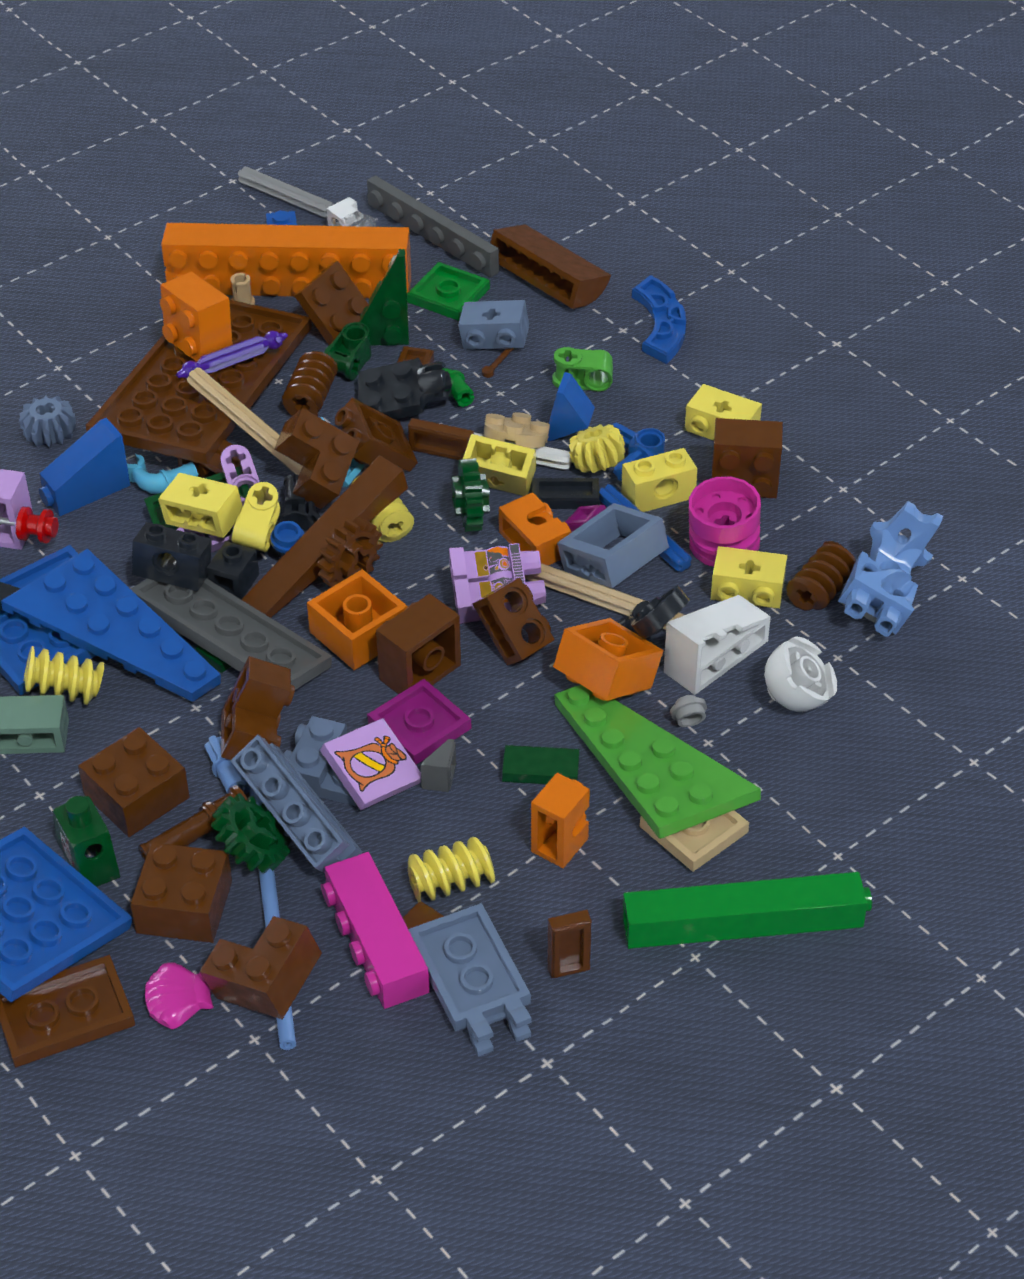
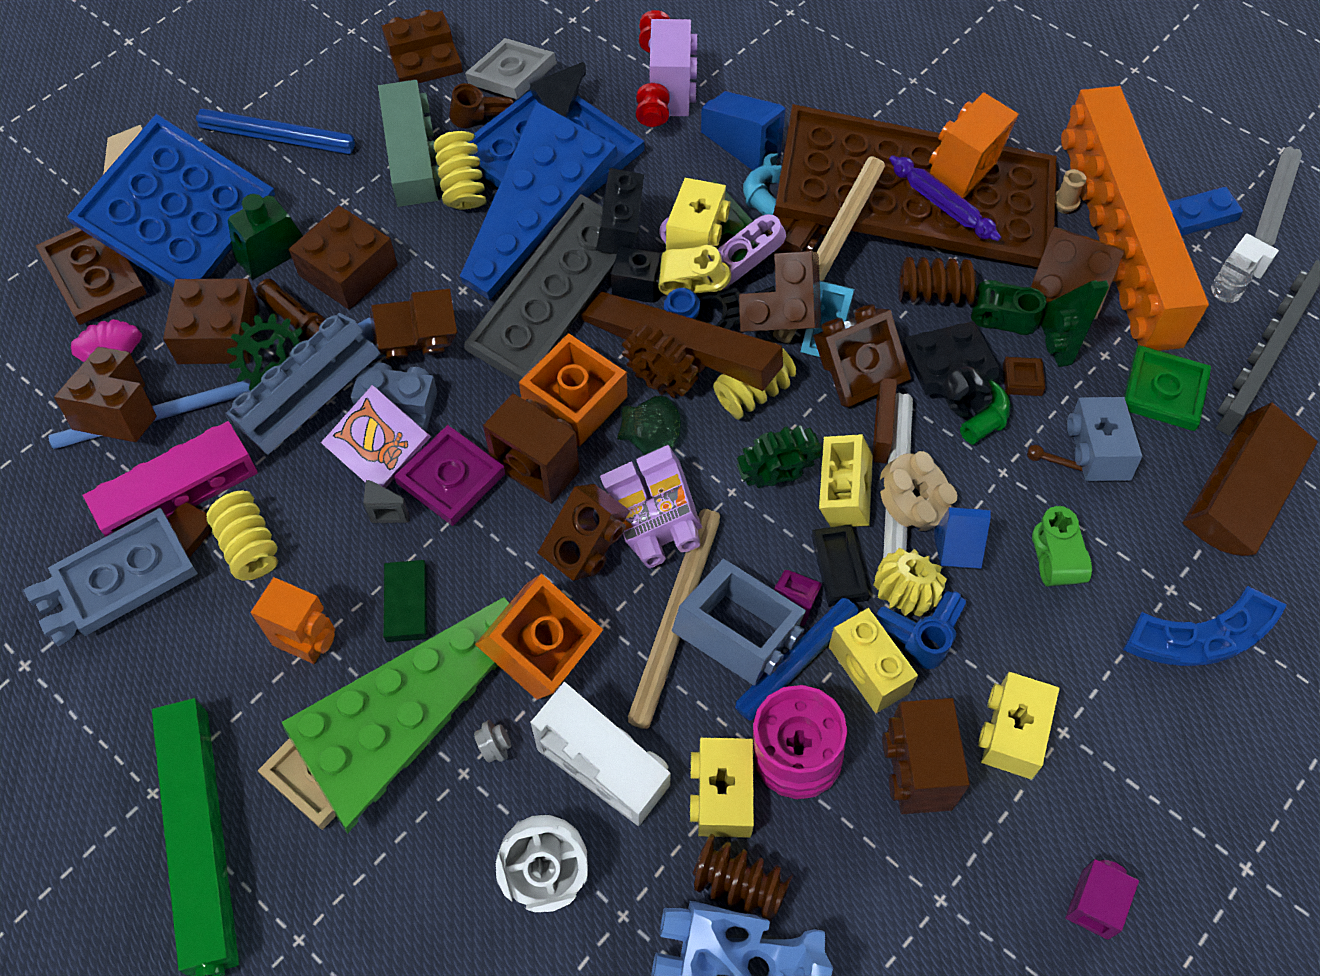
camera: 80 degrees right, 15 degrees up
(47, 421) = (817, 85): sand blue gear -> none
(405, 581) = (651, 424): none -> clear green animal
(533, 527) = (764, 520): orange brick -> none
(569, 944) = (125, 653): reddish brown tile -> none
(651, 616) = (597, 676): black pin -> none
(854, 404) = (1102, 898): none -> magenta brick

